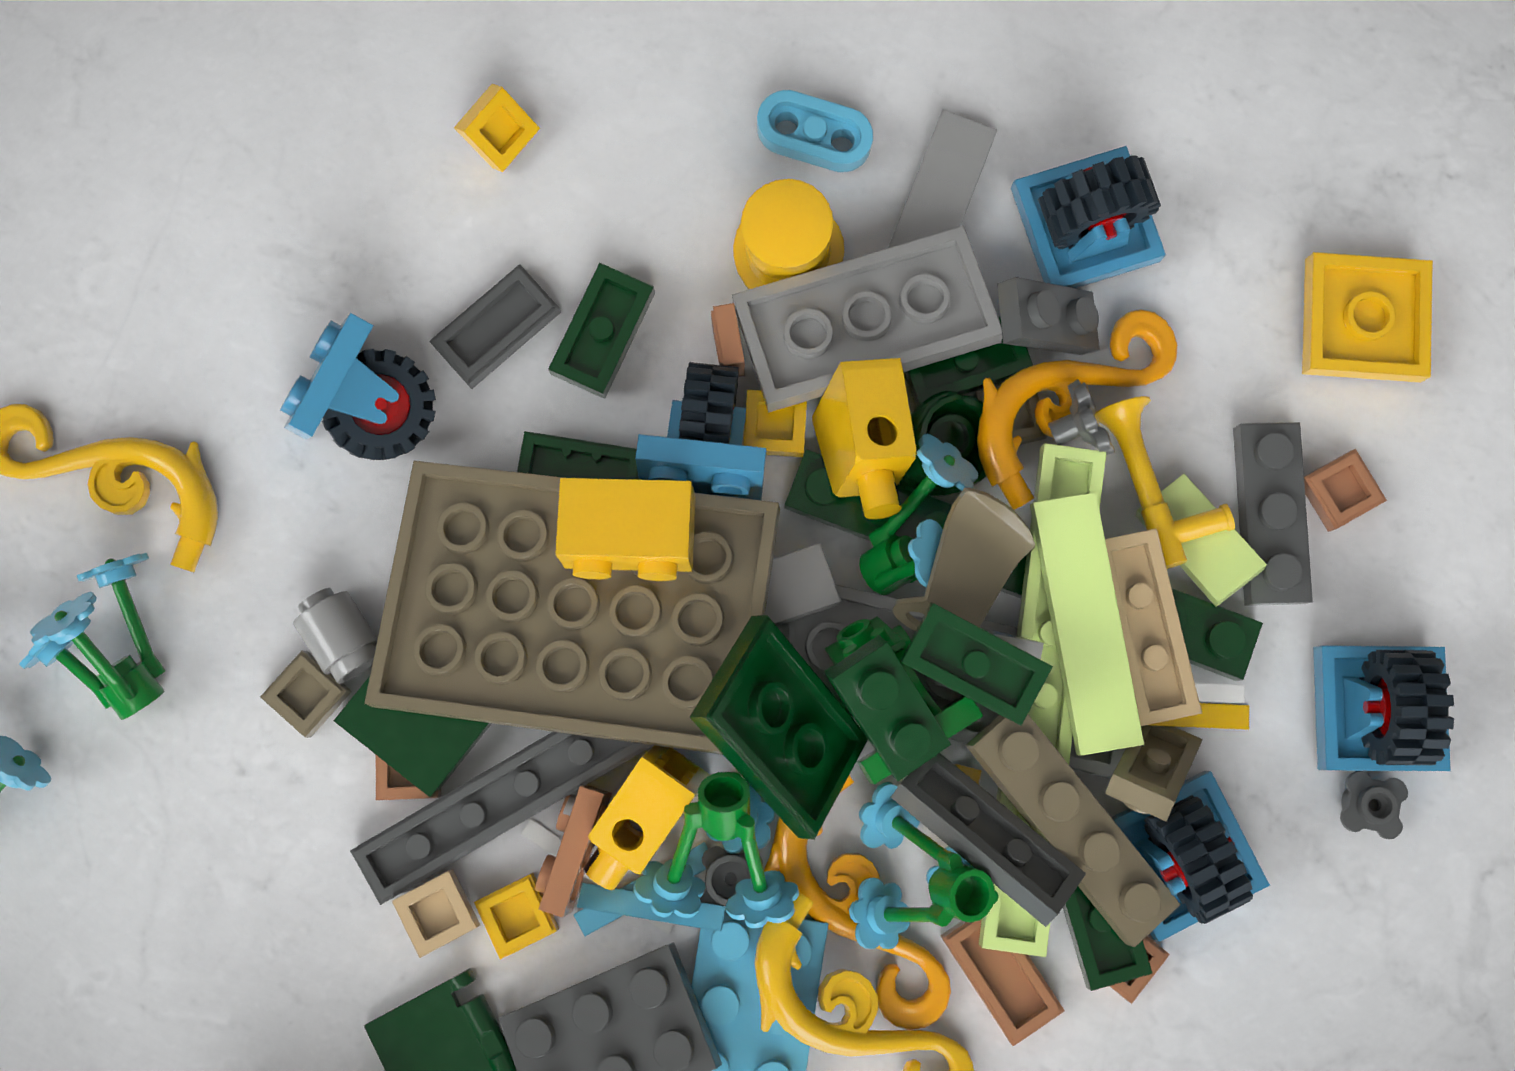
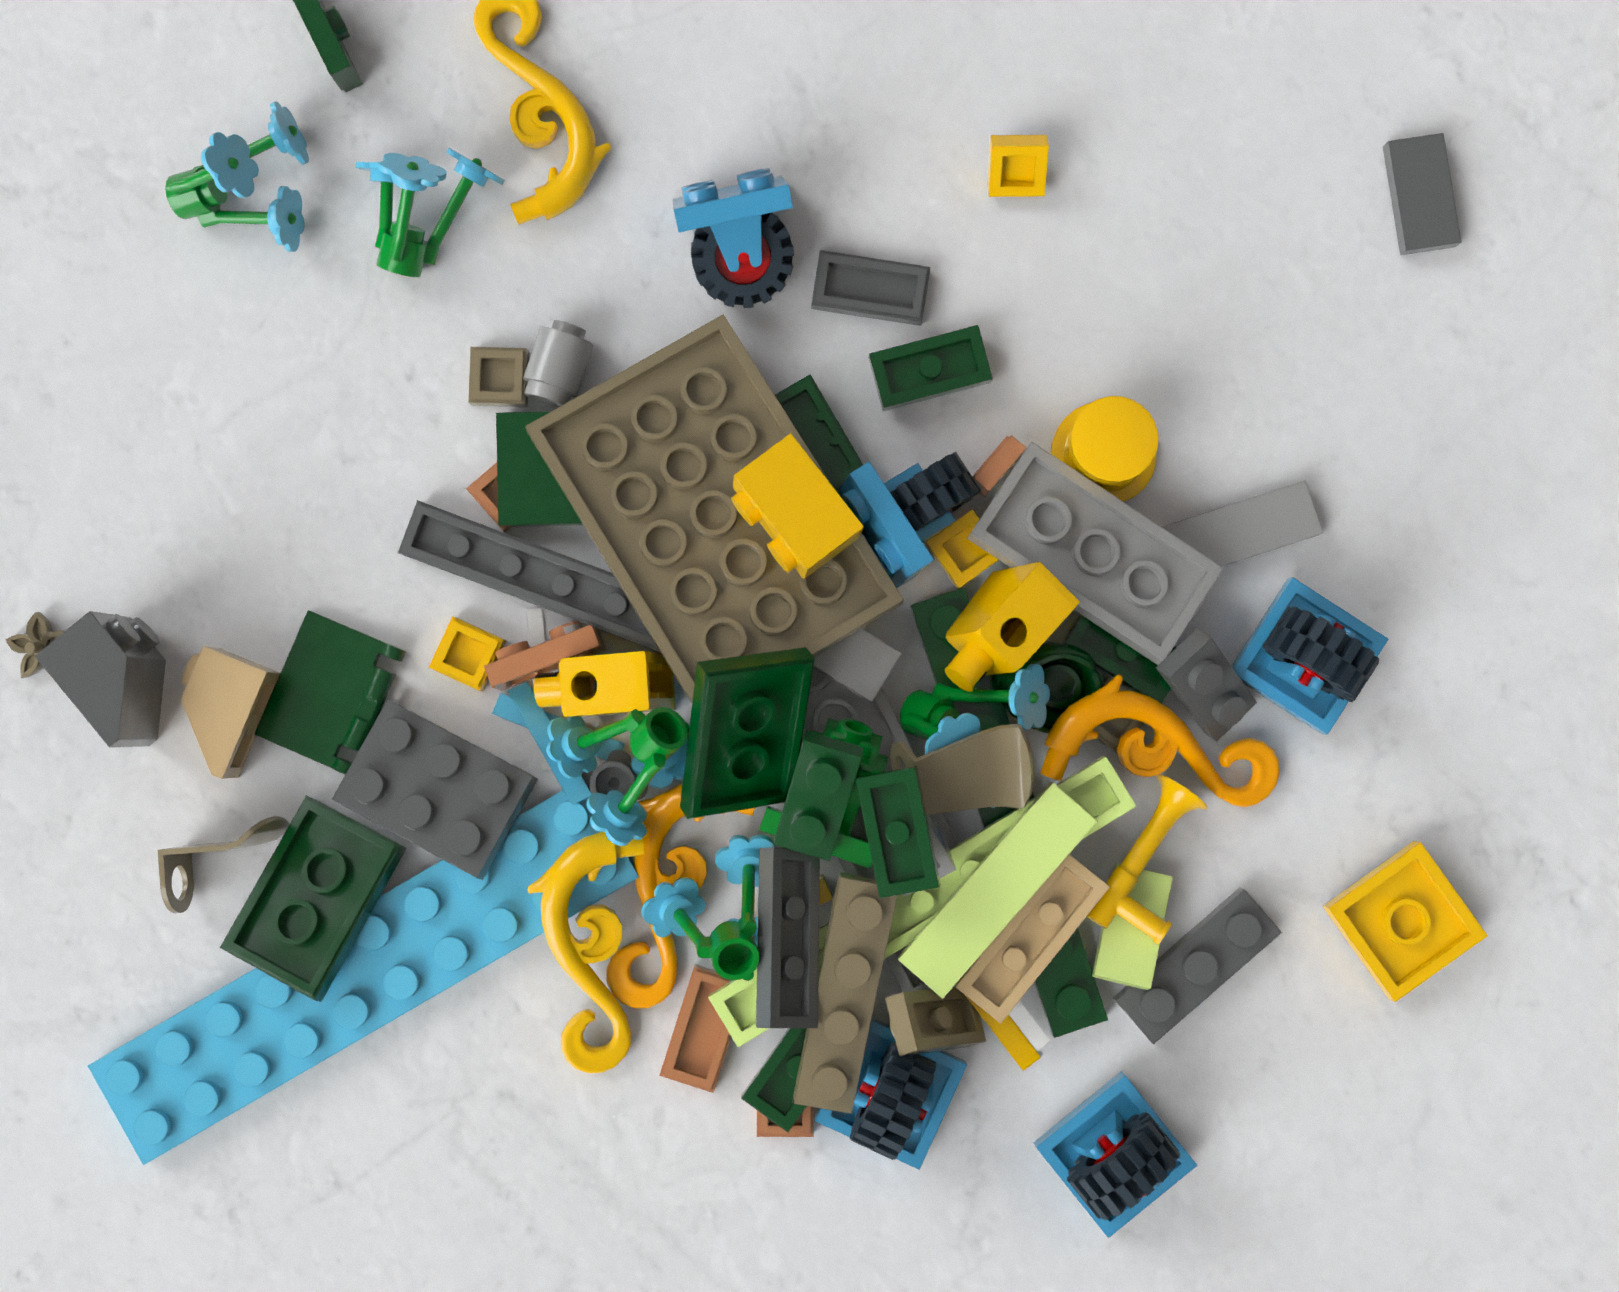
camera: 55 degrees right, 5 degrees up
(436, 913) = (423, 596): tan plate -> none
(817, 126) = (1213, 399): medium azure plate -> none
(1081, 421) = (1144, 770): dark grey plant -> none
(1342, 490) = (1257, 1003): nougat tile -> none
(1356, 810) = (1042, 1185): dark grey plate -> none

